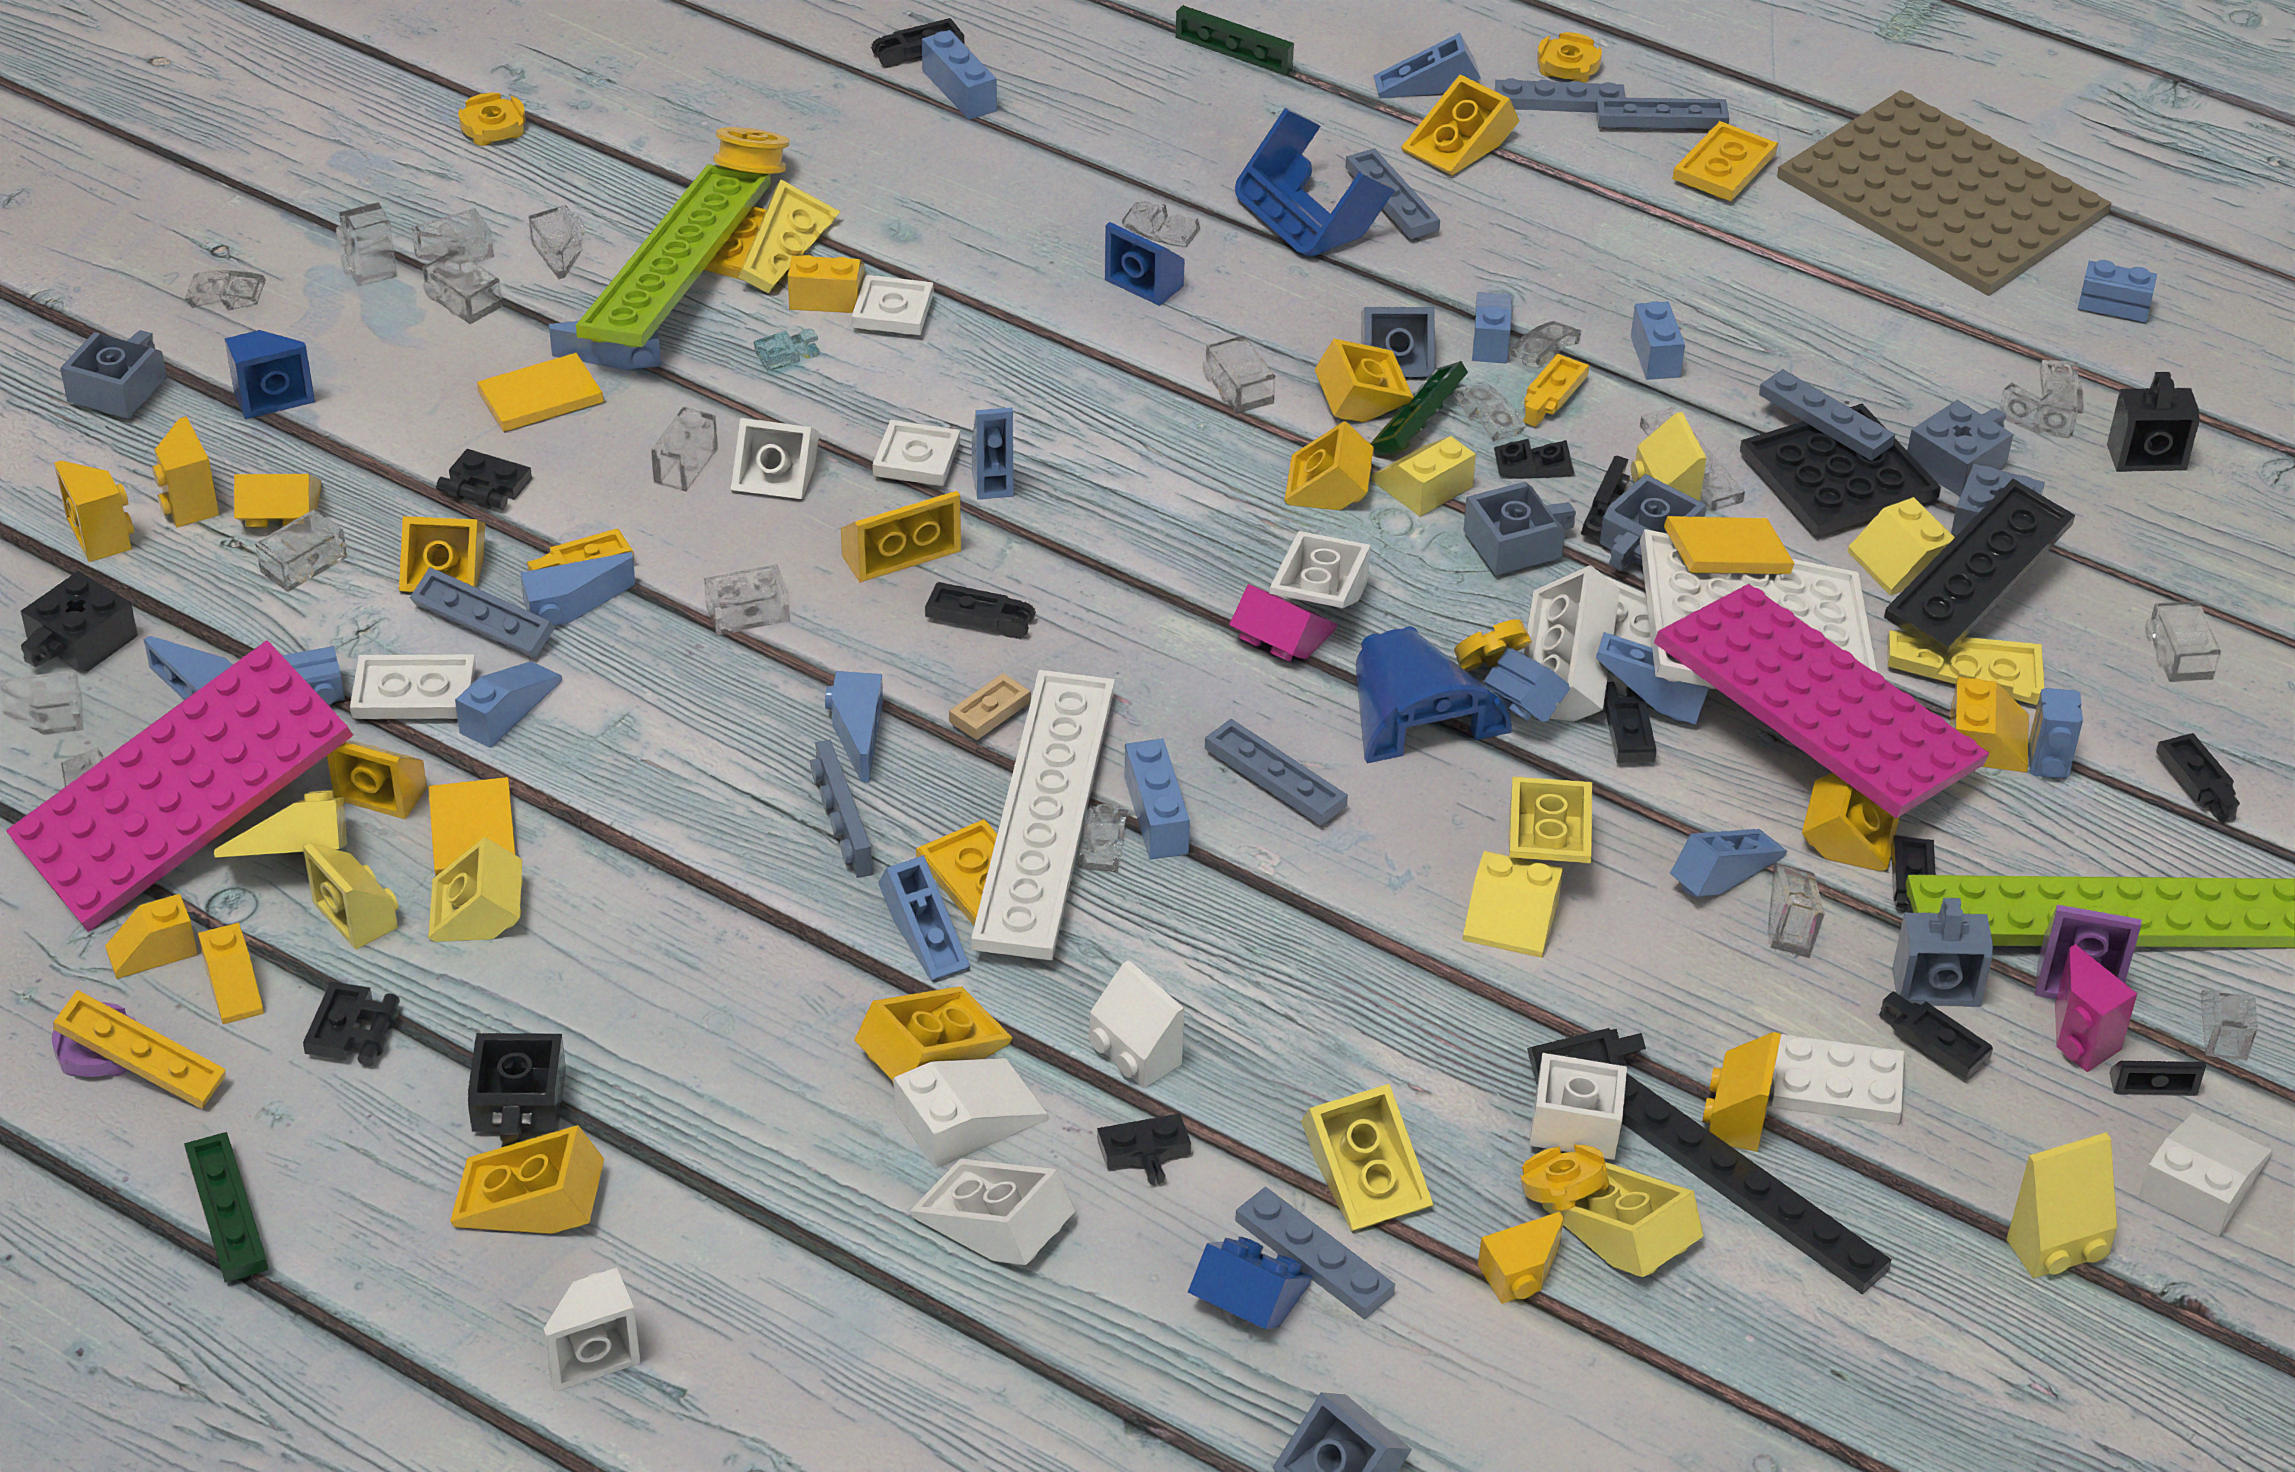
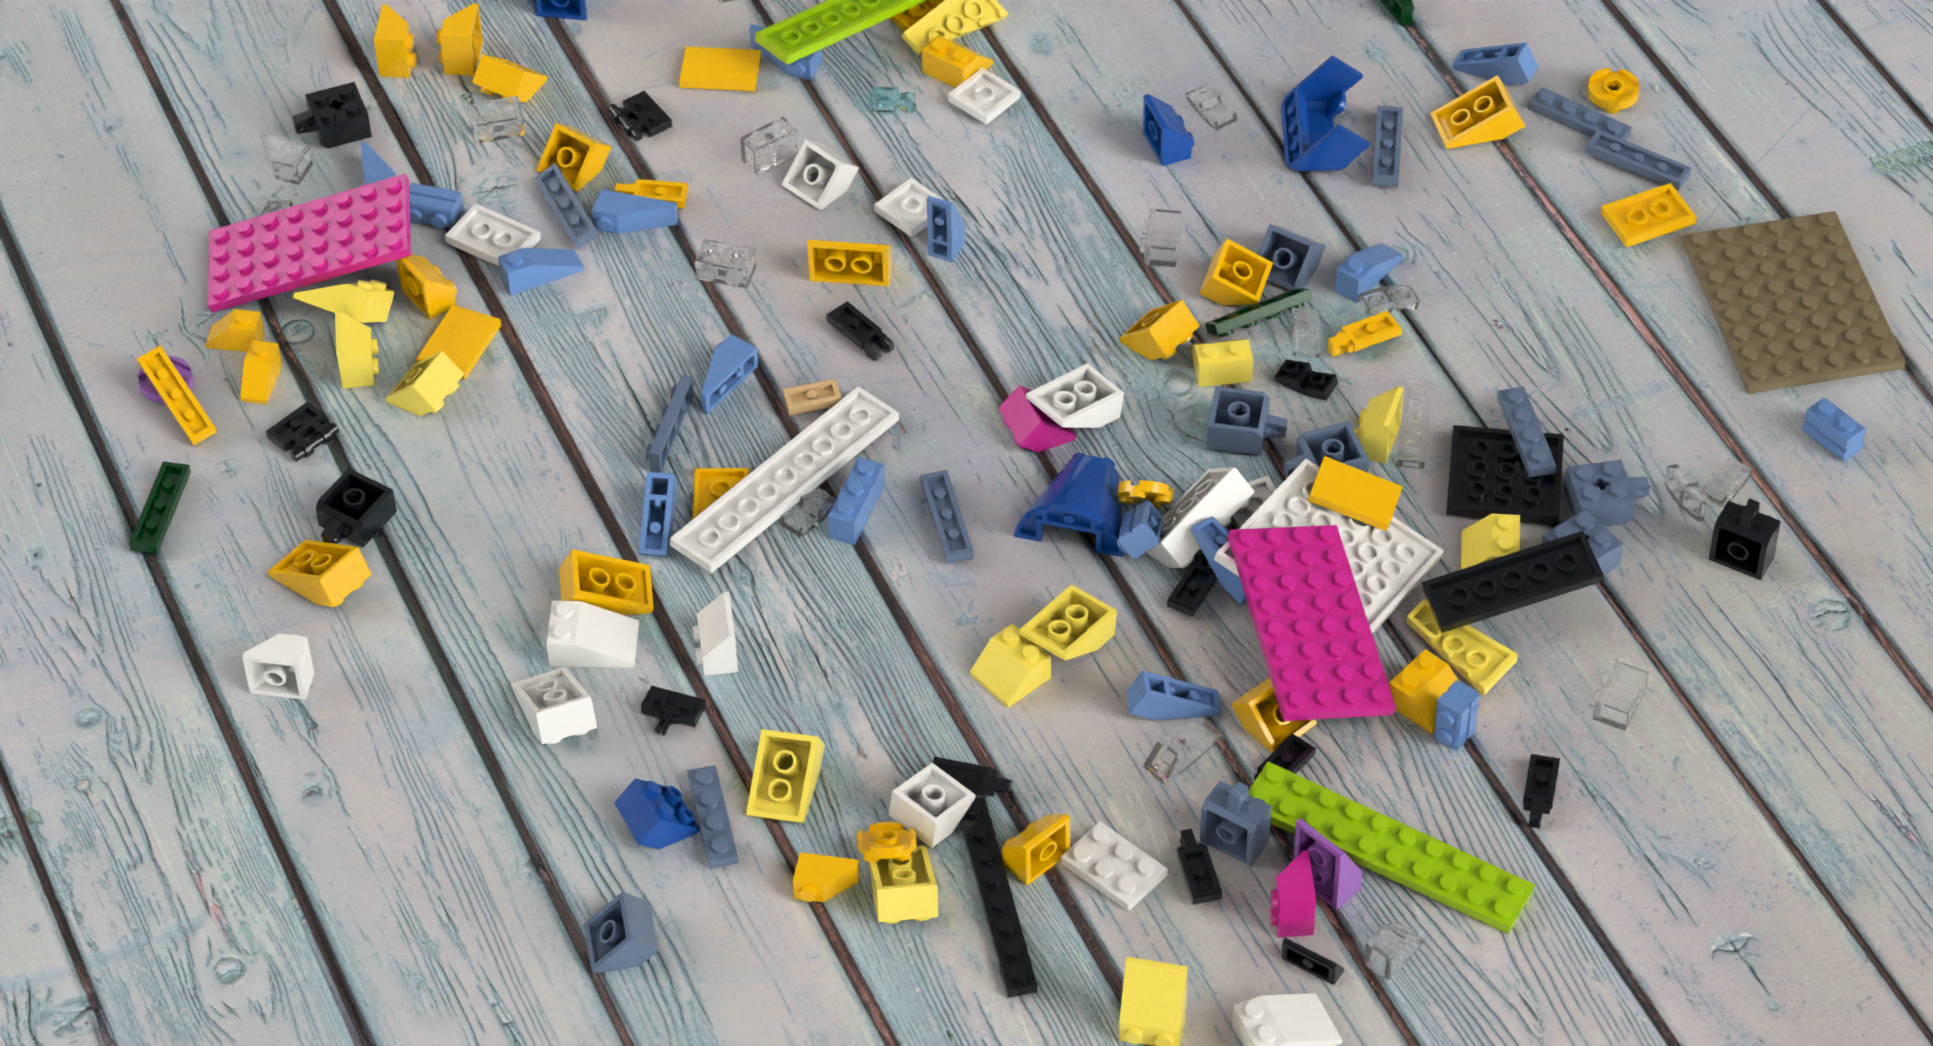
camera: 35 degrees right, 5 degrees up
(1613, 483) = (1338, 414): black hinge -> none
(1657, 340) = (1464, 329): medium blue brick -> none

